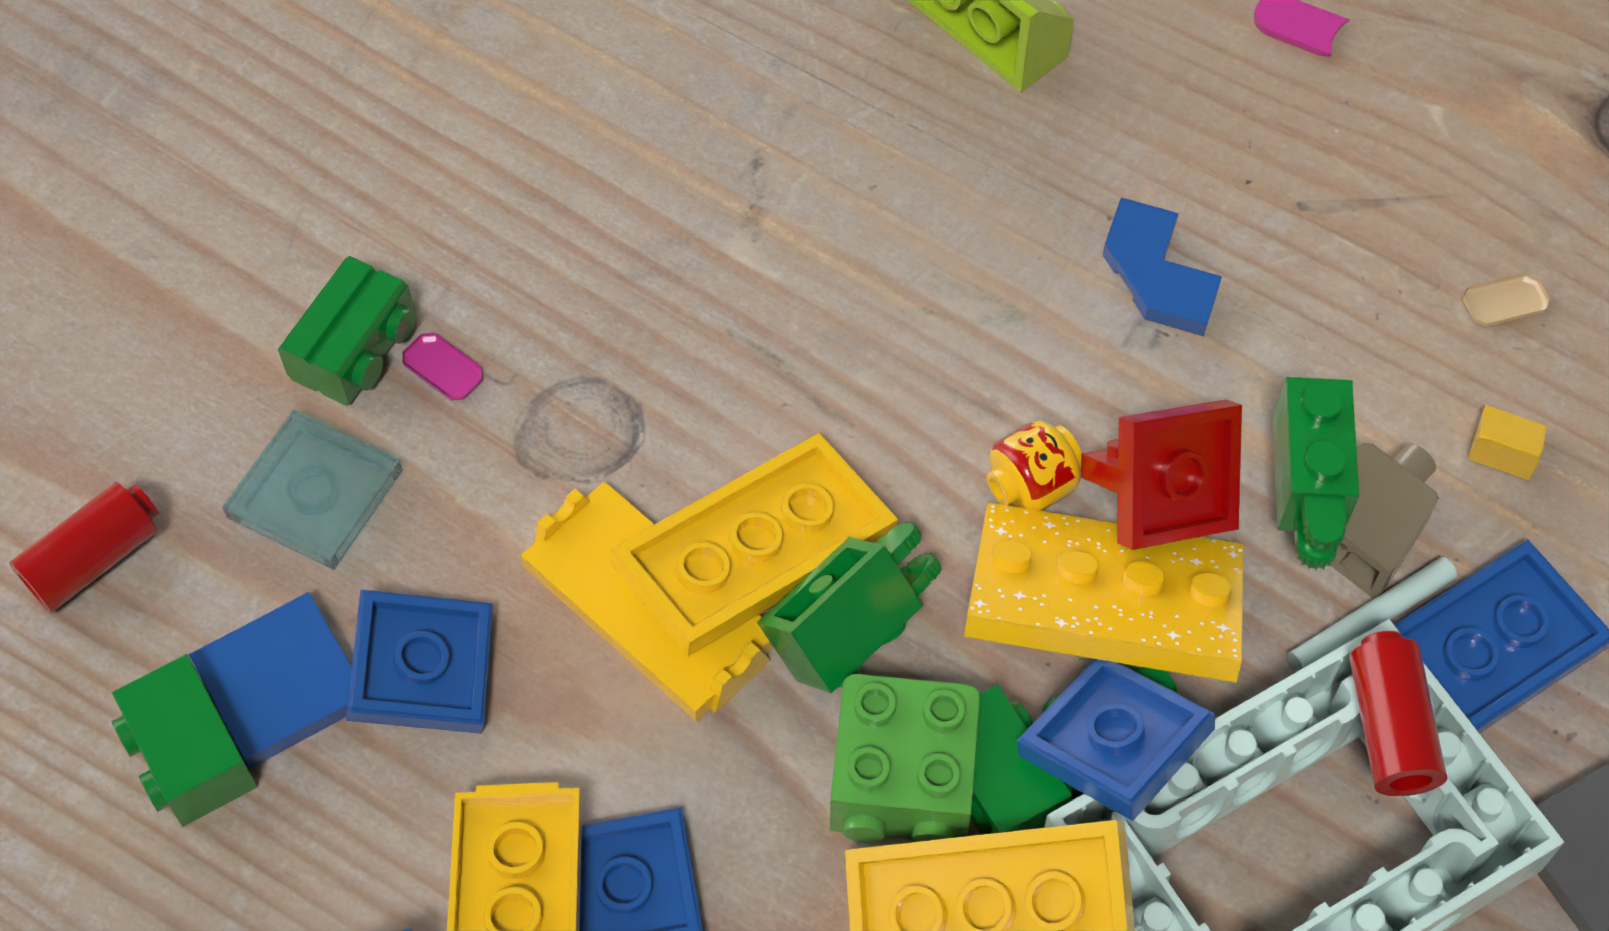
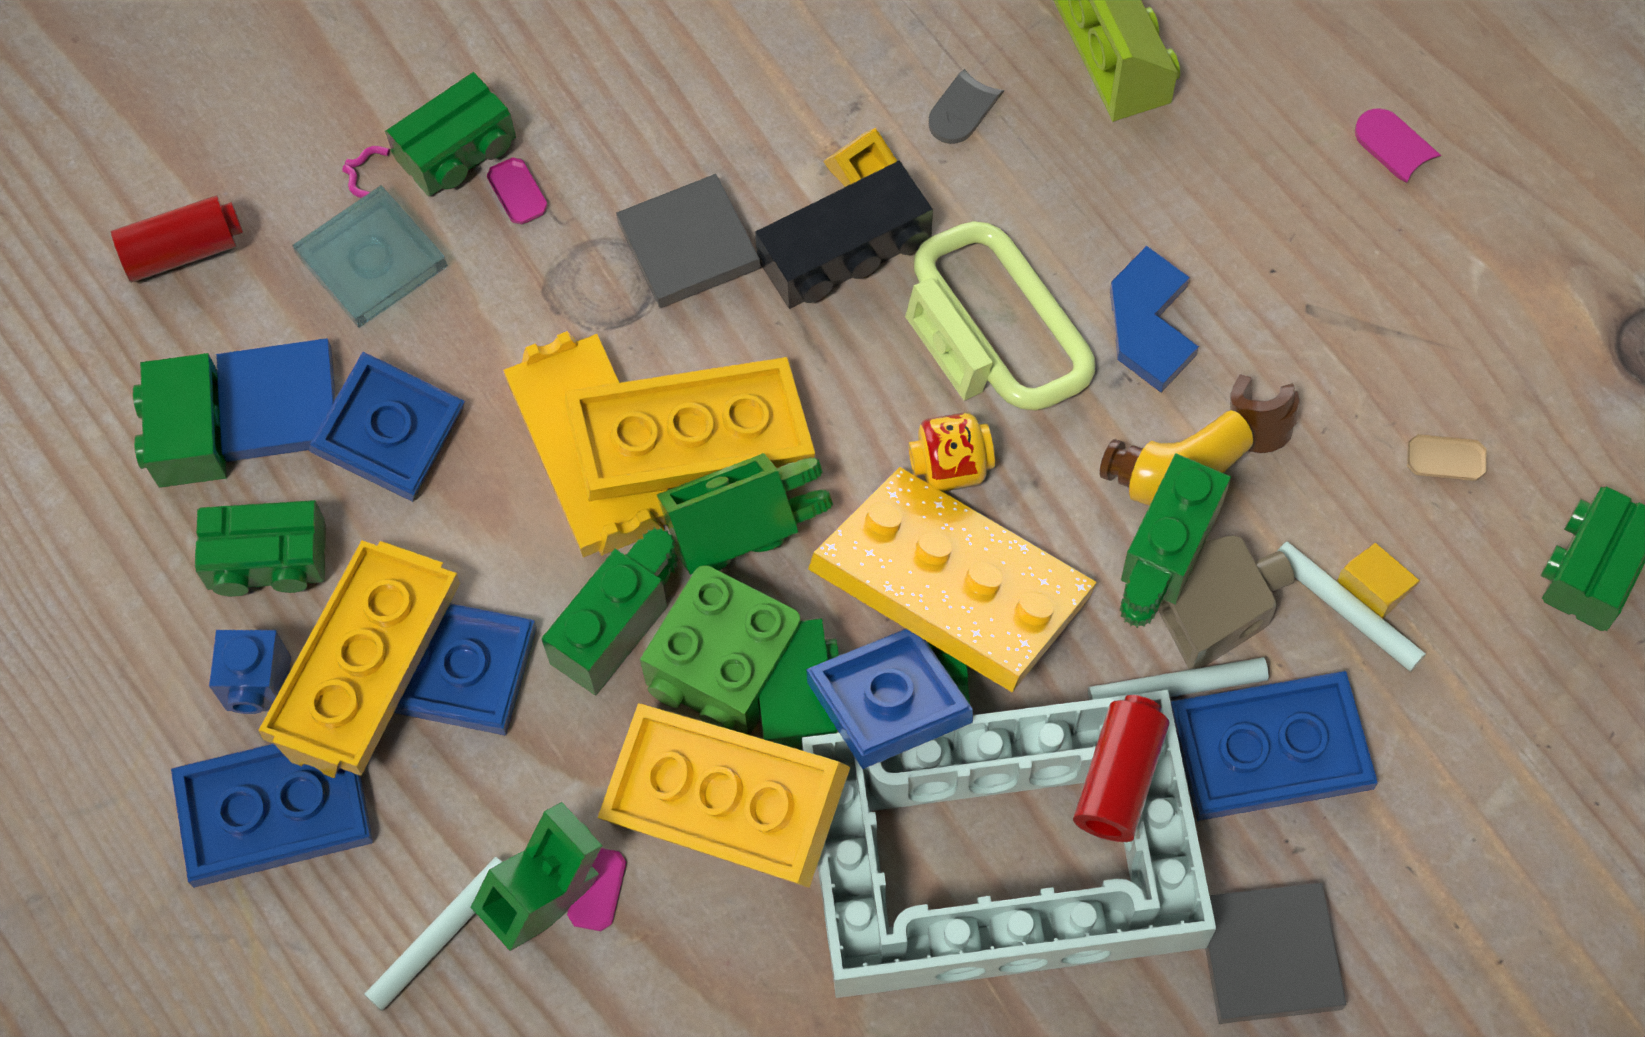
camera: 25 degrees right, 5 degrees up
(244, 407) = (349, 163): none -> dark pink piece
(338, 846) = (260, 547): none -> green brick
(652, 353) = (688, 240): none -> dark grey tile
(766, 765) = (612, 612): none -> green hinge
(797, 216) = (860, 158): none -> yellow slope
(816, 291) = (844, 235): none -> black brick
(866, 130) = (961, 109): none -> dark grey piece
(988, 359) = (960, 344): none -> yellowish green bar
(1172, 473) = (1055, 500): red bracket -> none
(1308, 338) = (1246, 427): none -> piece
(1504, 478) = (1352, 609): none -> light aqua bar

